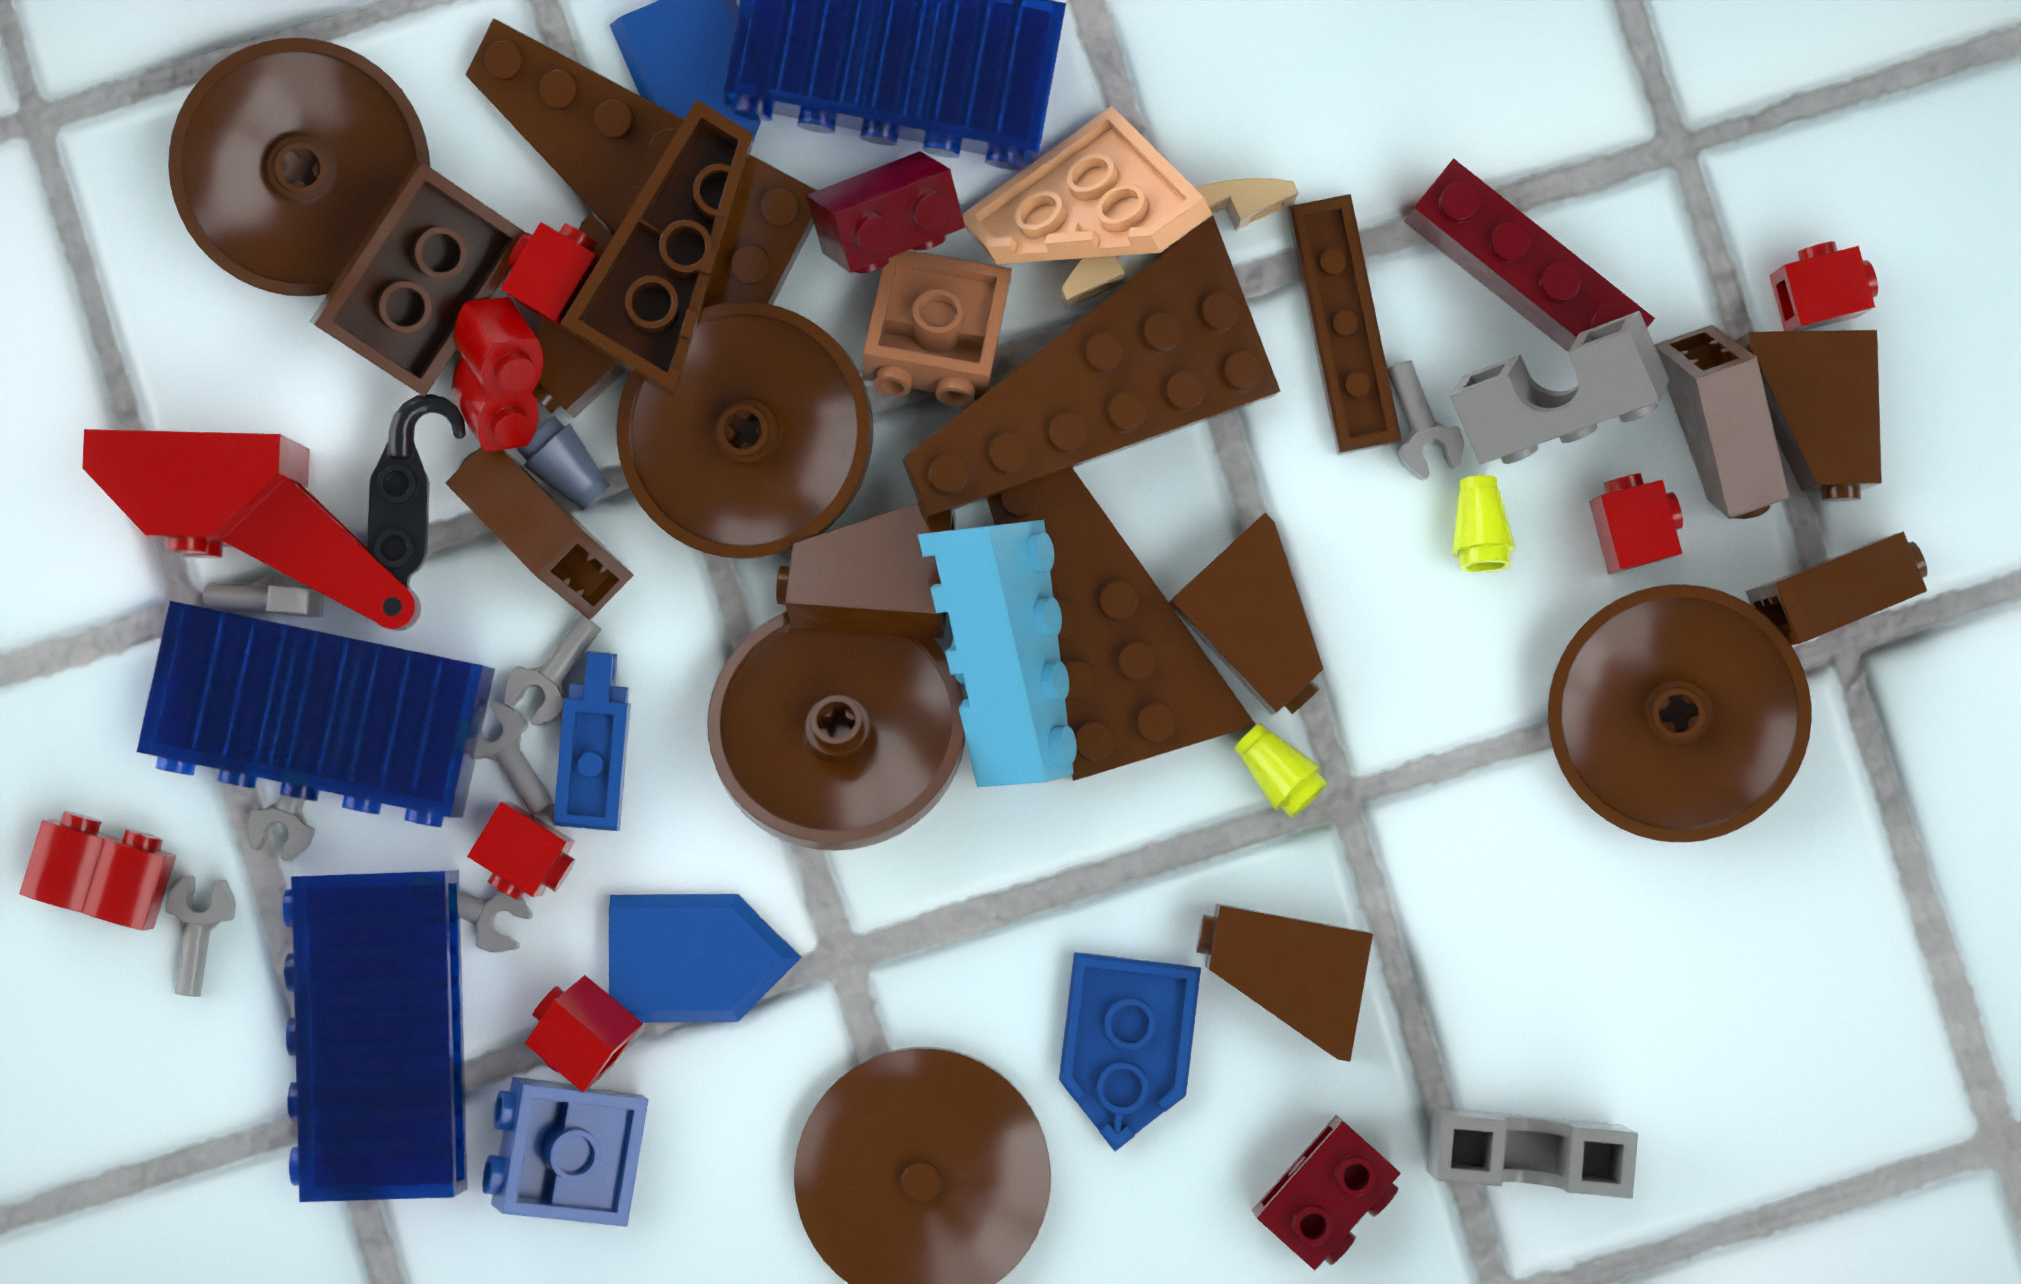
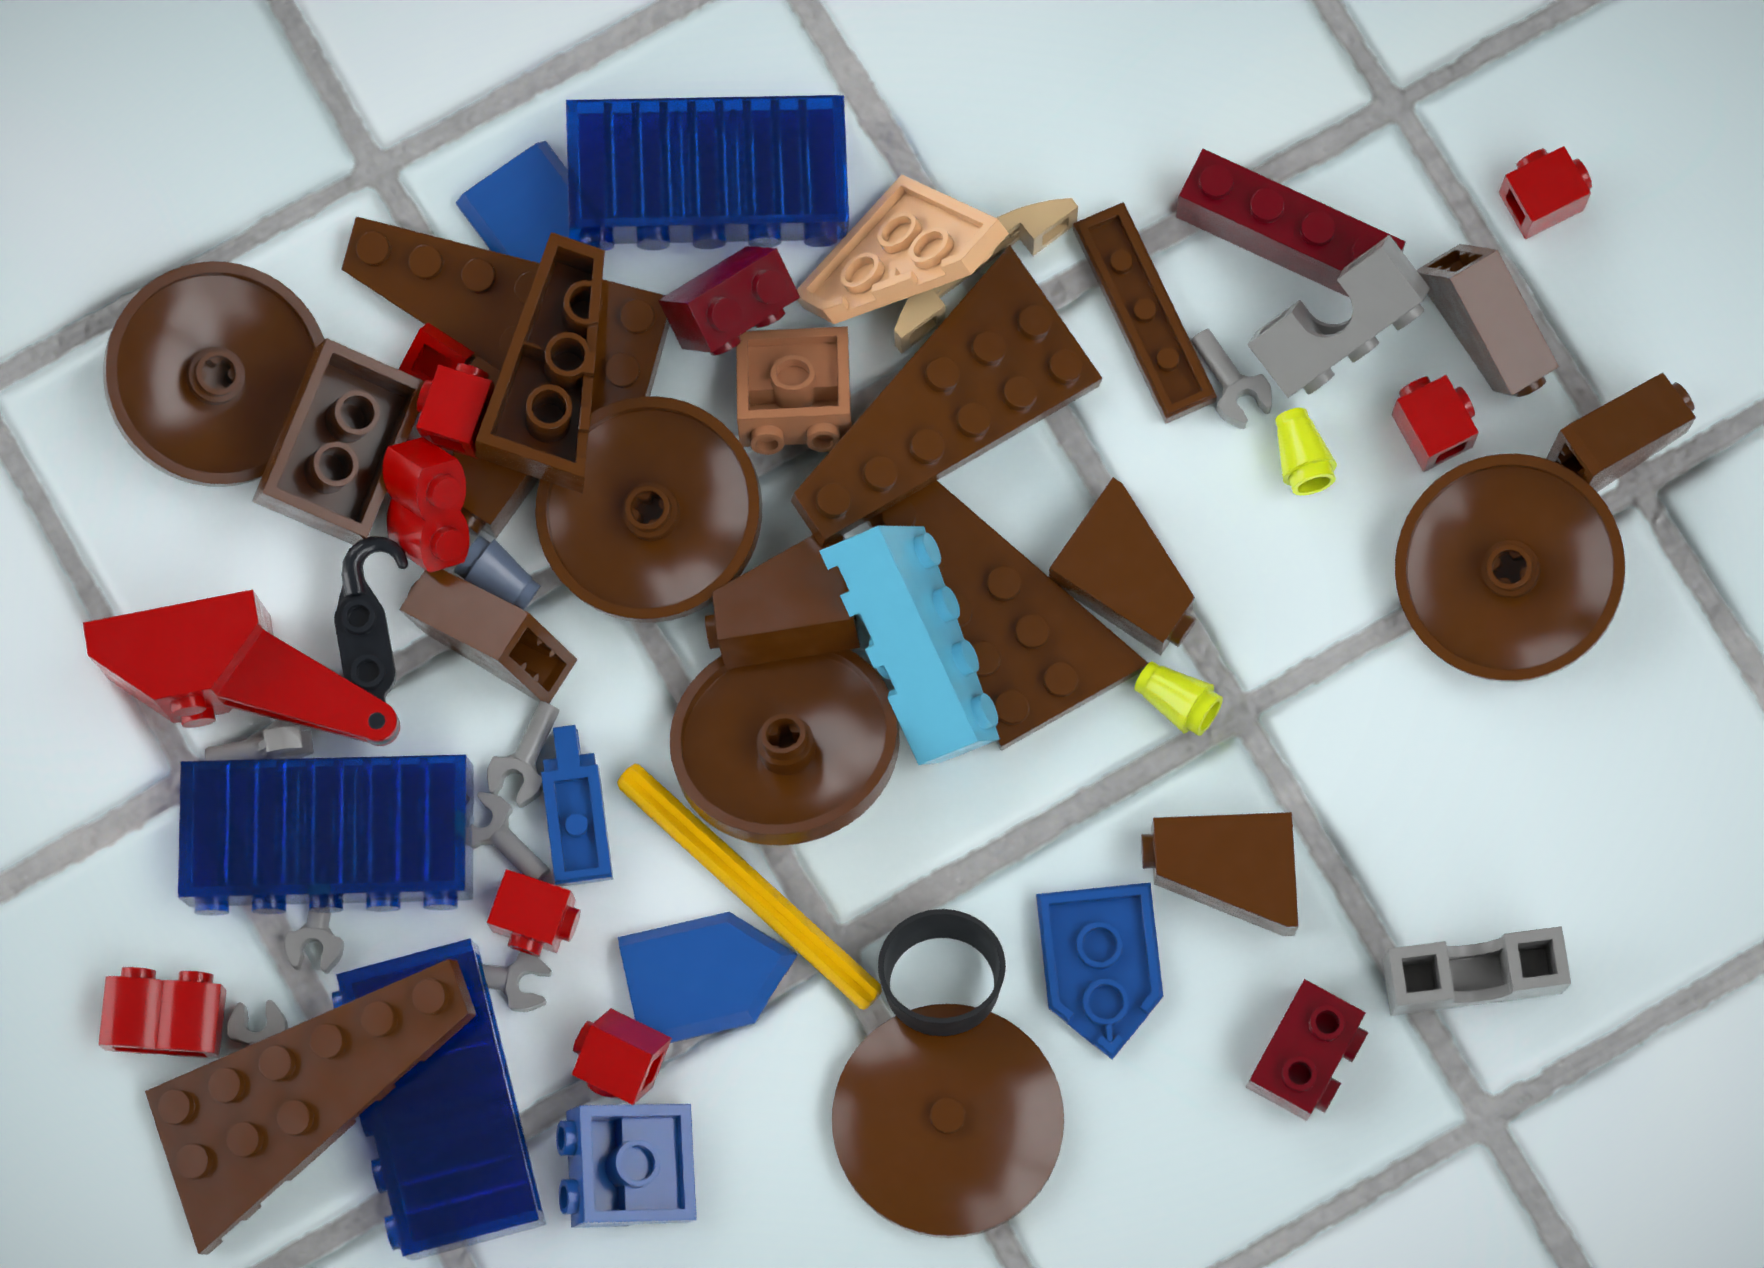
camera: 10 degrees left, 10 degrees down
(201, 1002) = (281, 1102): none -> reddish brown wing
(546, 199) = (433, 348): none -> red plate
(765, 873) = (749, 886): none -> yellow axle
(962, 962) = (941, 924): none -> black tyre
(1823, 406) = (1570, 287): reddish brown slope -> none

